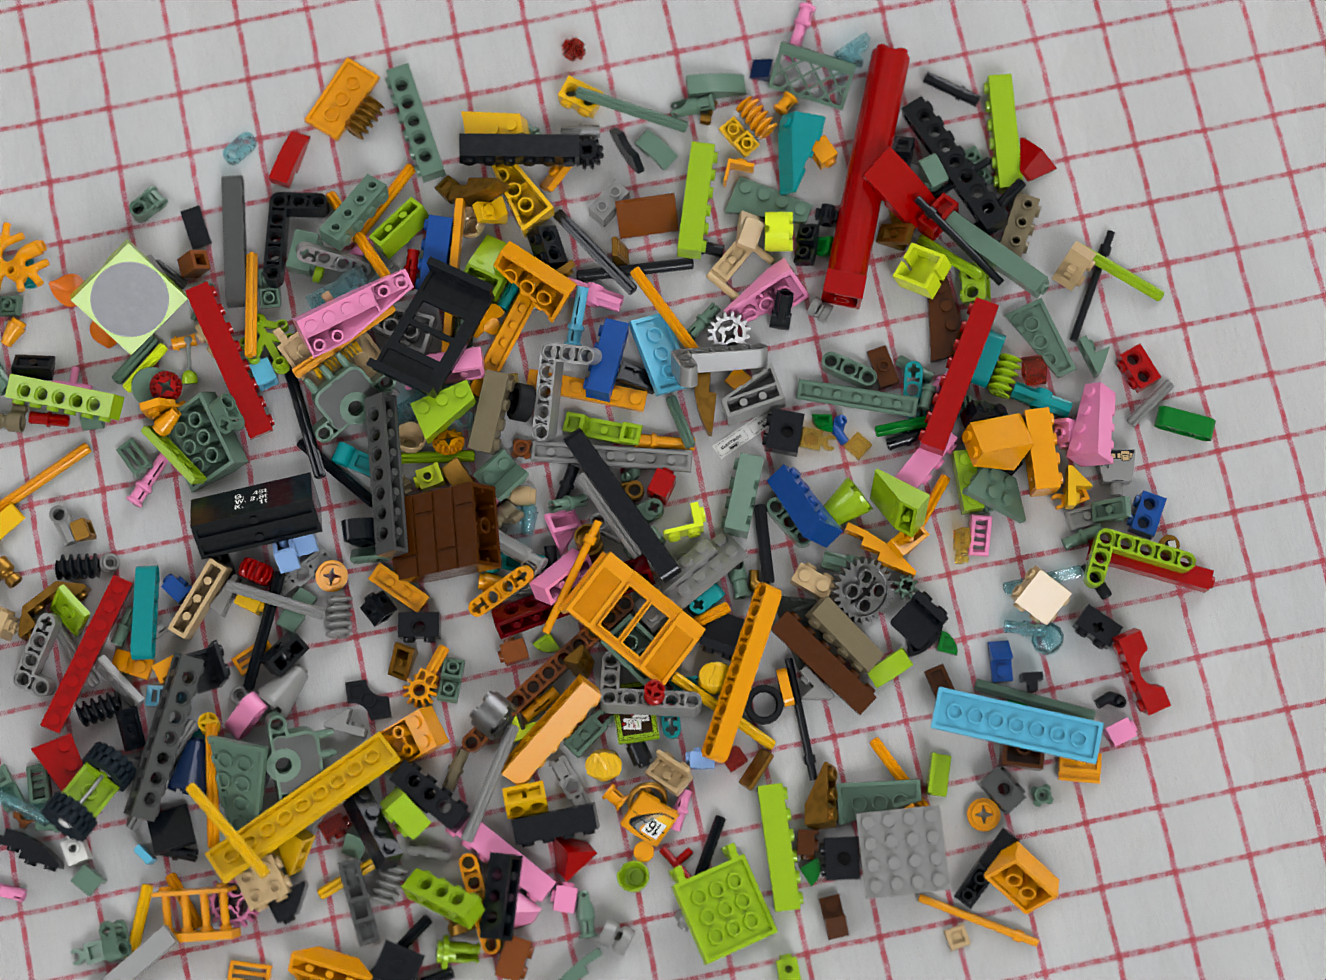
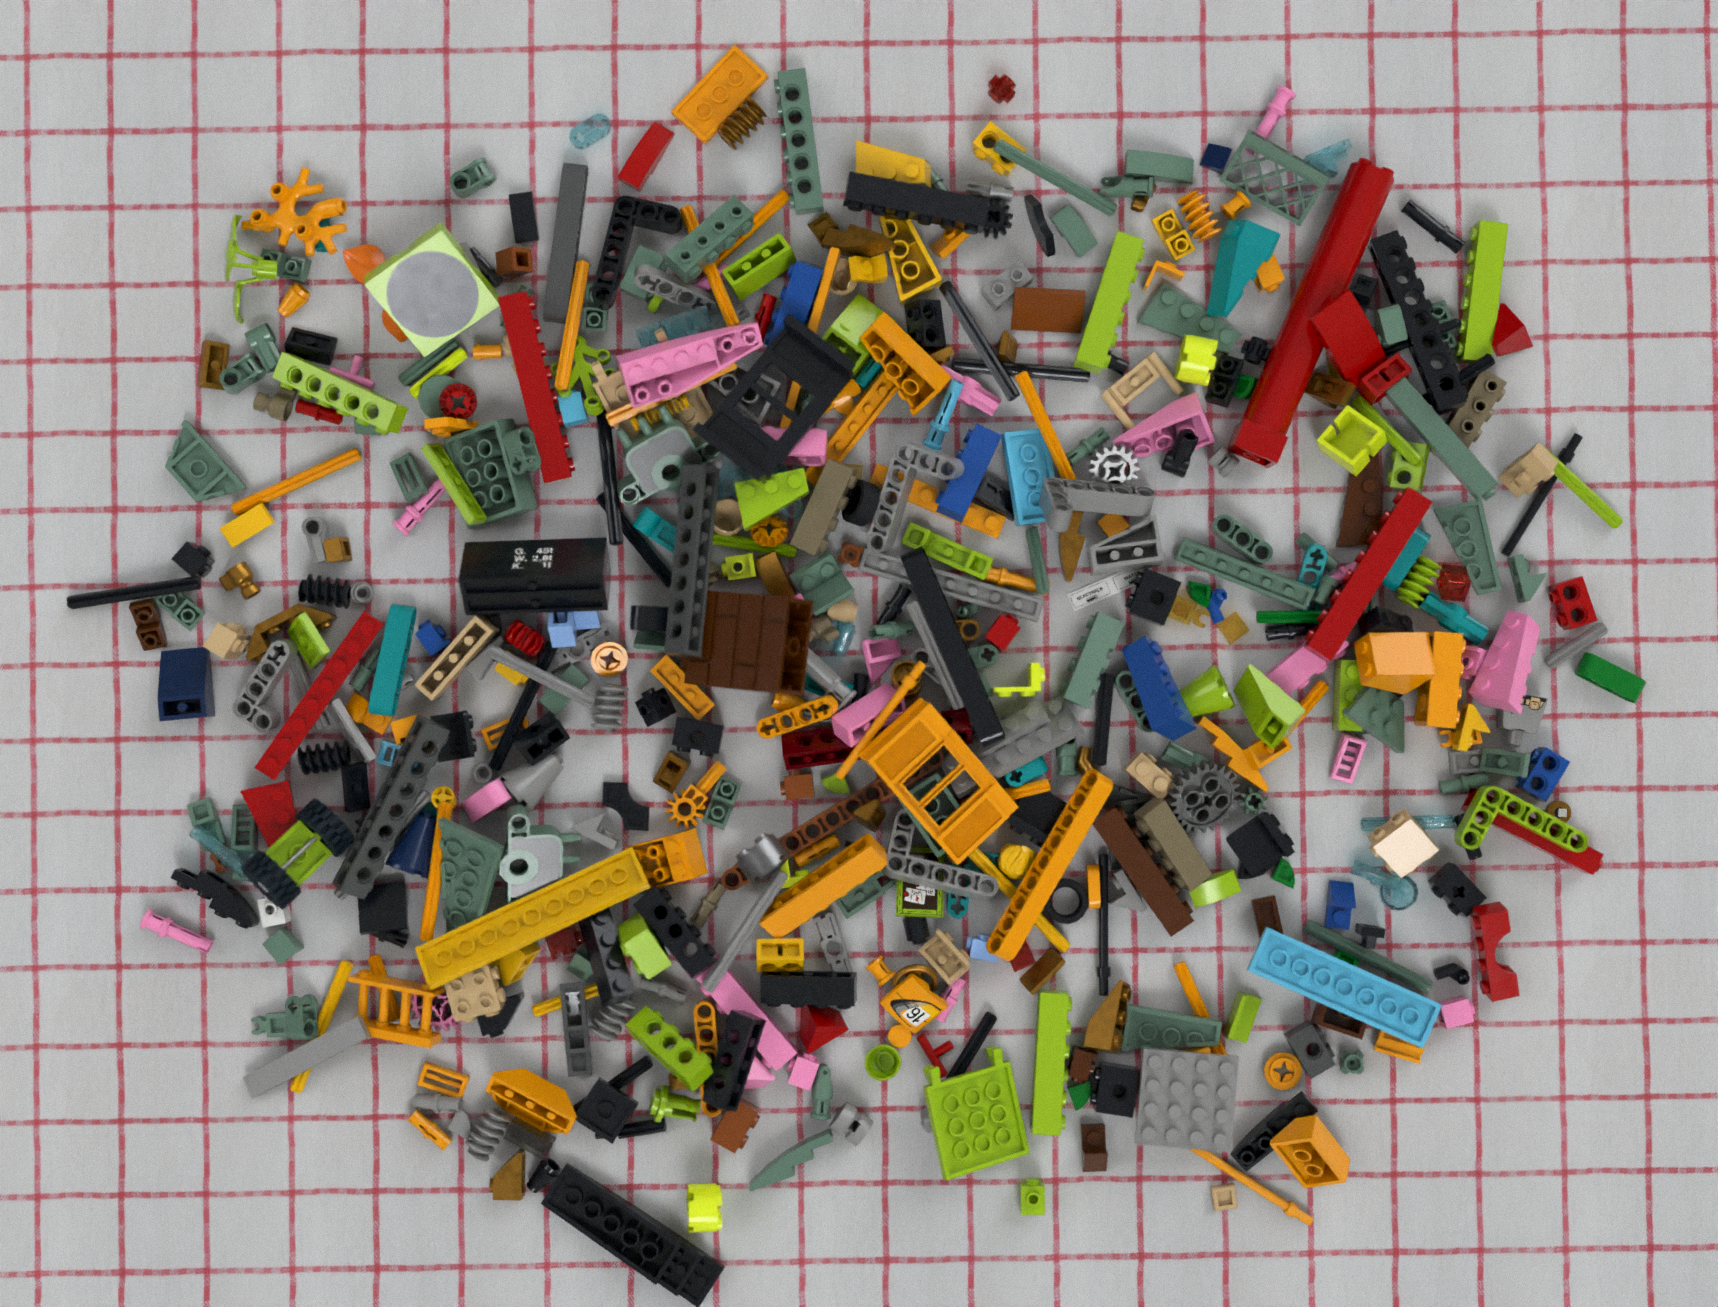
camera: 10 degrees right, 10 degrees up
(145, 854) = (349, 929): medium azure tile -> none
(166, 422) = (450, 445): light orange cone -> none
(189, 375) = (487, 393): hinge -> none
(227, 830) = (444, 931): yellow axle -> none
(603, 764) = (874, 931): yellow hair -> none
(651, 688) = (949, 865): red wheel -> none
(748, 230) = (1161, 351): tan slope -> none
(883, 366) = (1281, 540): reddish brown plate -> none
(931, 213) = (1378, 376): black bar -> none
(961, 542) = (1325, 763): clear yellow plate -> none

